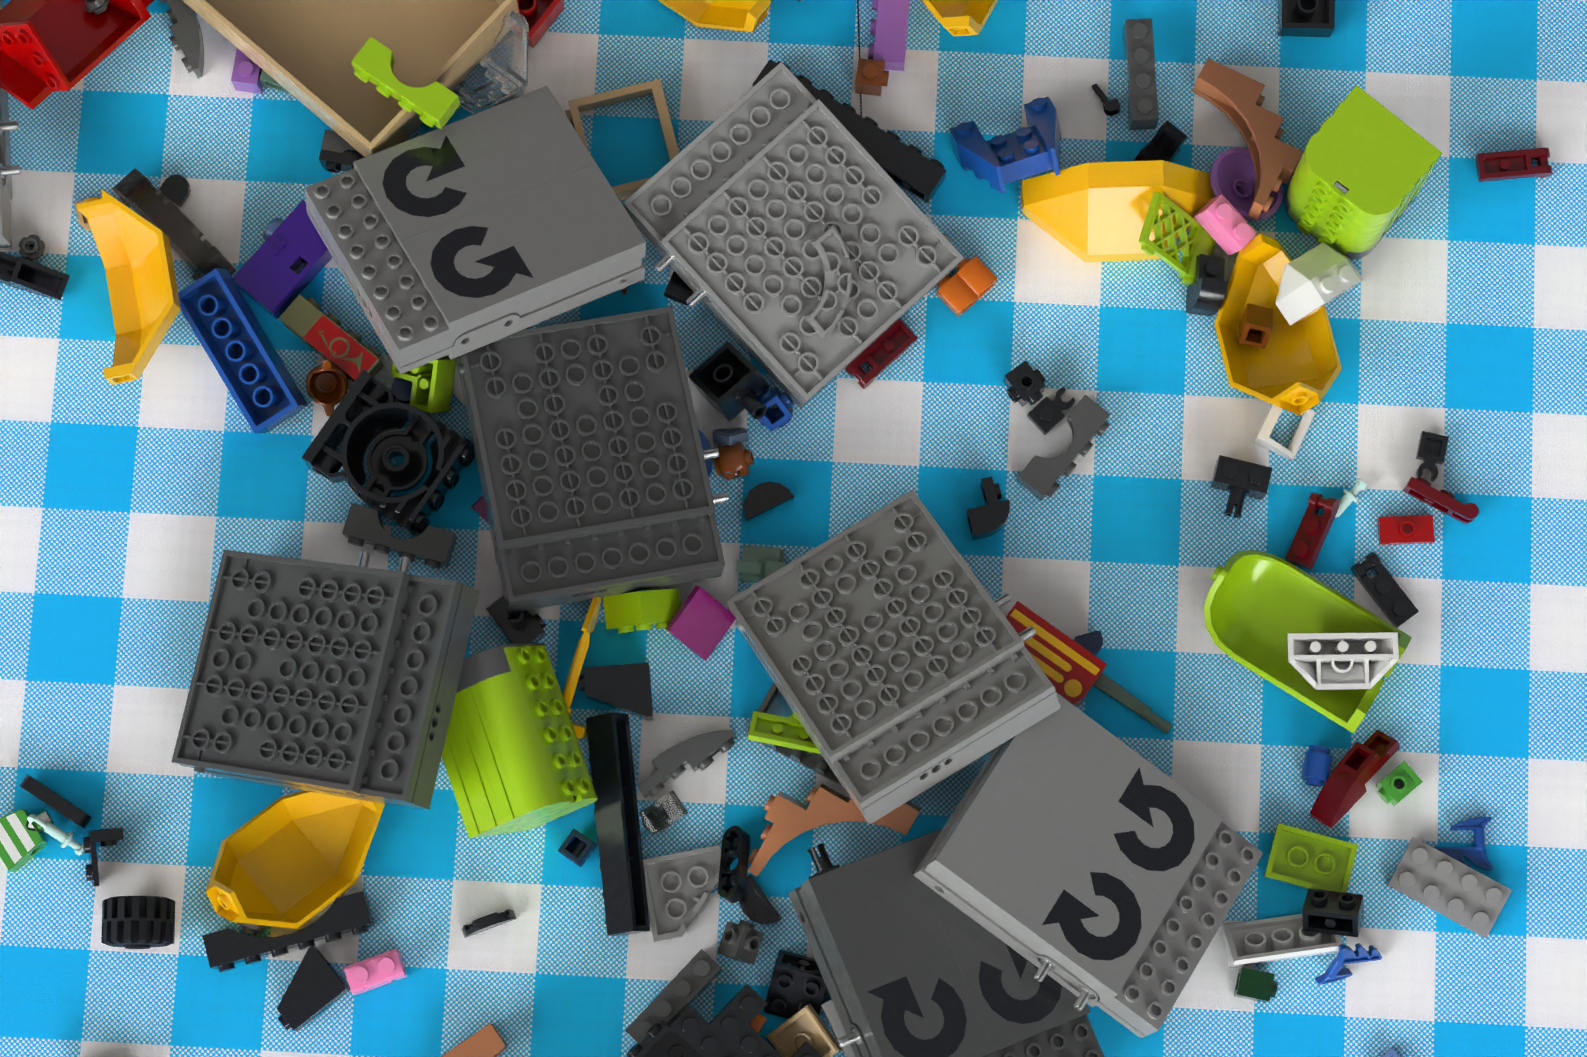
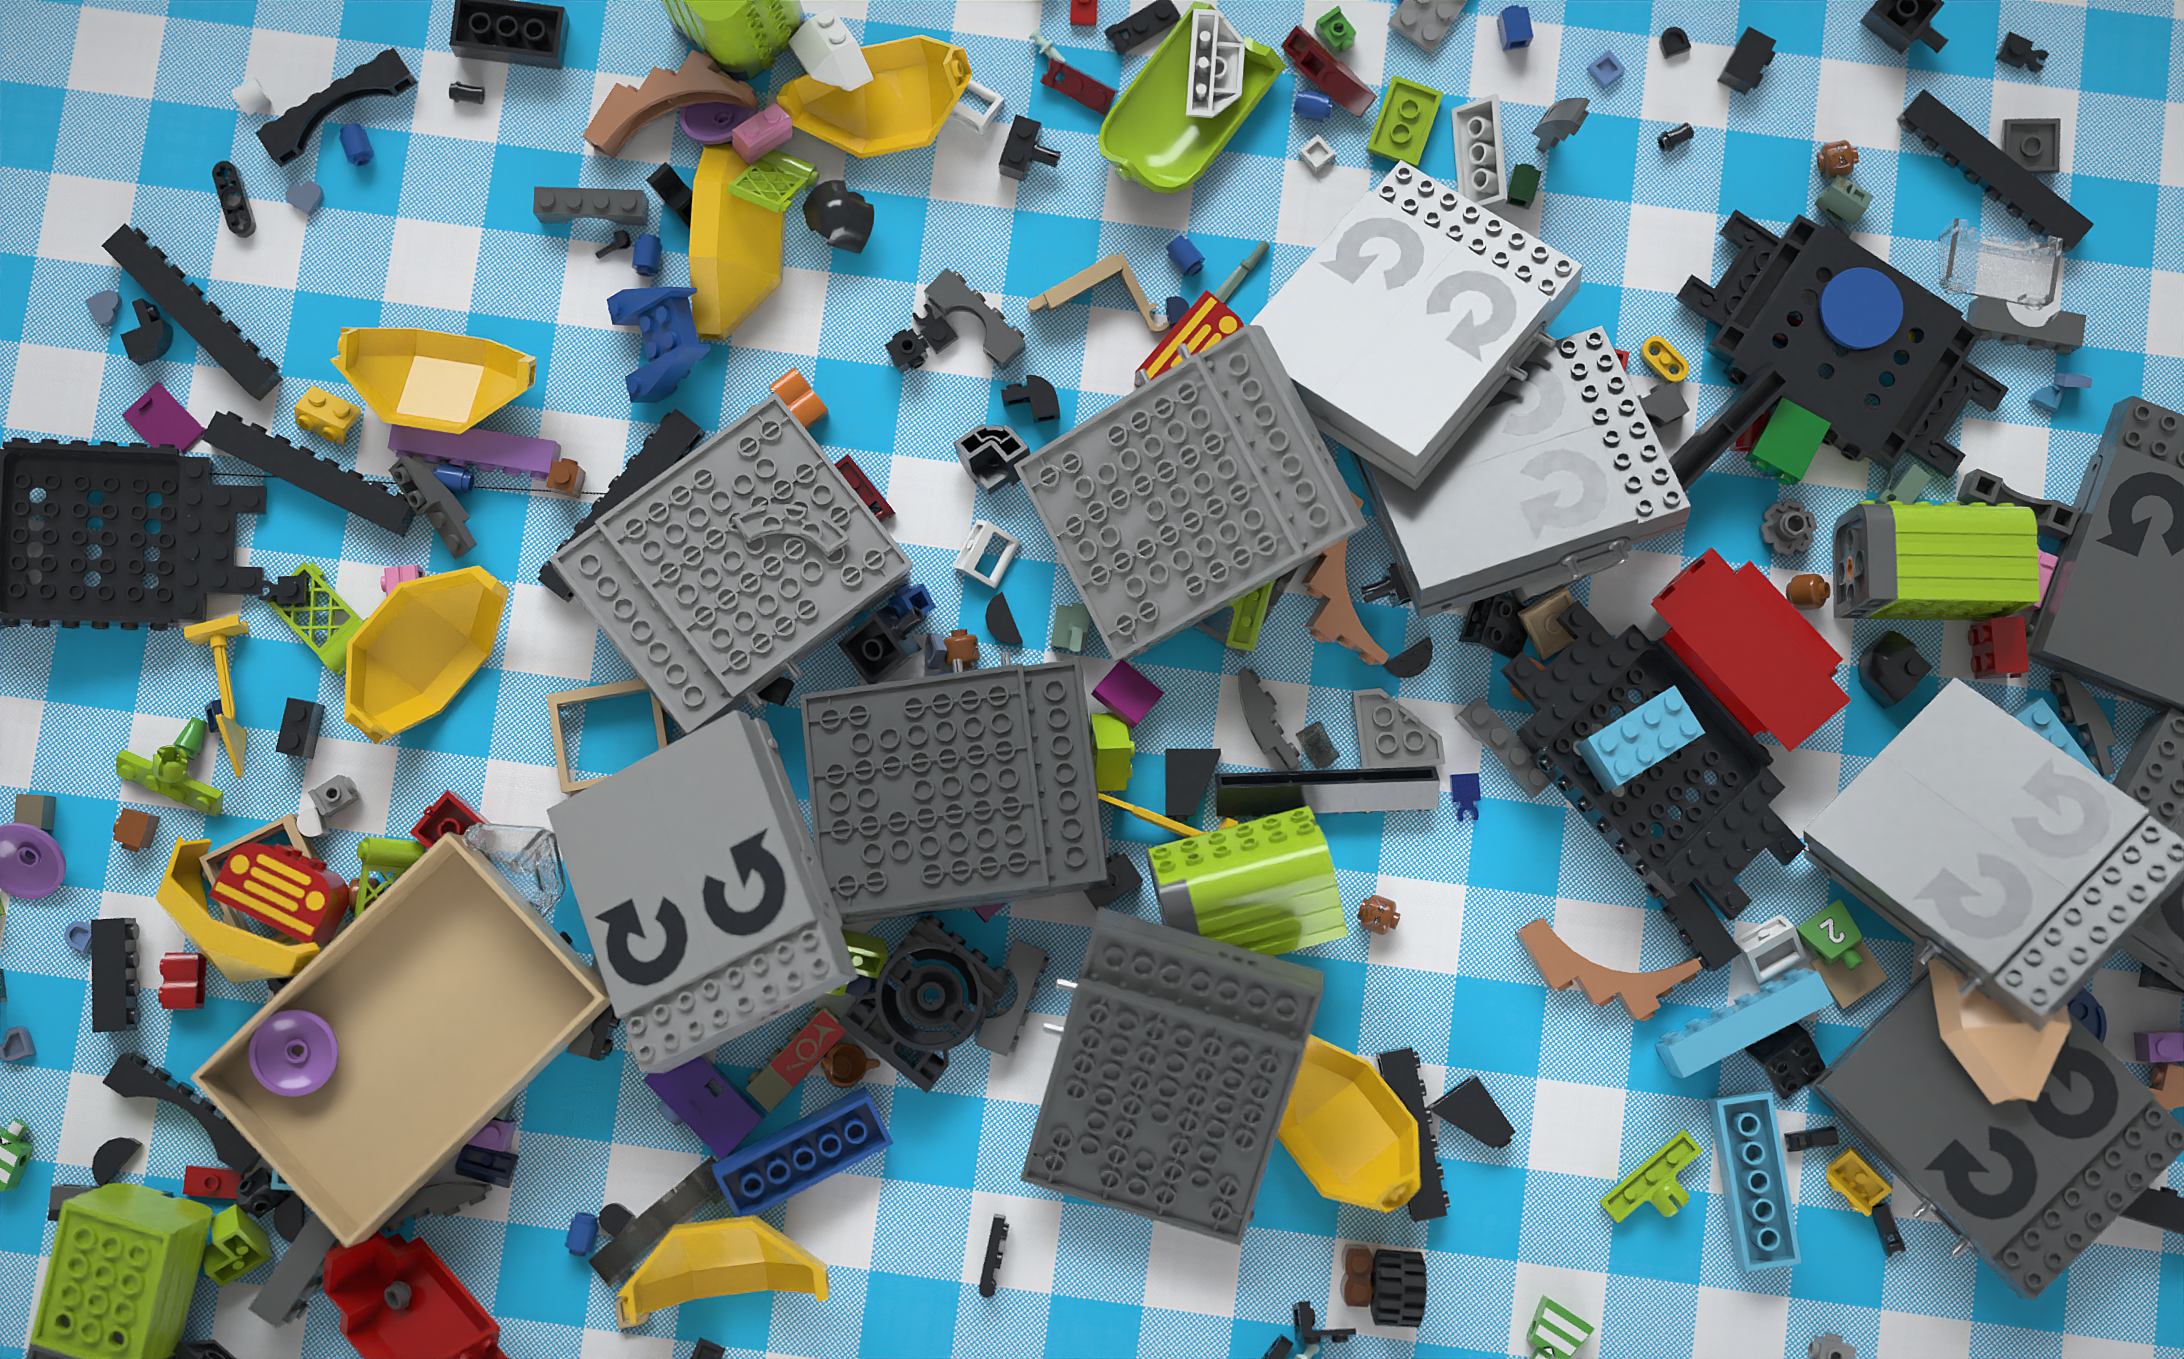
camera: 90 degrees left, 5 degrees up
(154, 537) = (993, 1257): none -> black plate
(155, 883) = (1355, 1283): none -> reddish brown brick
(159, 161) = (582, 1233): none -> blue brick
(218, 71) = (486, 1165): none -> dark blue slope
(375, 971) = (1459, 1046): bright pink brick -> none
(431, 102) = (559, 927): lime arch -> none
(488, 922) = (1415, 929): black tile -> none
(500, 884) = (1378, 914): none -> dark orange head
(577, 848) = (1346, 834): dark blue brick -> none
(629, 965) = (1465, 789): none -> clear blue plate
(734, 846) = (1363, 683): black beam -> none
(741, 942) = (1452, 676): dark grey brick -> none
(834, 465) = (975, 546): none -> white tile
(927, 471) = (990, 455): none -> black brick
(1097, 131) = (647, 255): none -> blue brick
(1114, 556) = (1091, 278): none -> tan hinge
(1147, 649) = (1185, 256): none -> blue brick
(1152, 307) = (839, 216): none -> black brick
(1209, 289) = (826, 158): black brick -> none
(1255, 326) = (868, 116): dark orange brick -> none
(1268, 774) = (1316, 153): none -> white tile
(1316, 1011) = (1561, 120): none -> dark grey slope
(1333, 912) = (1460, 102): black brick -> none
(1347, 956) = (1509, 102): blue piece -> none
(1422, 967) = (1515, 28): none -> blue brick

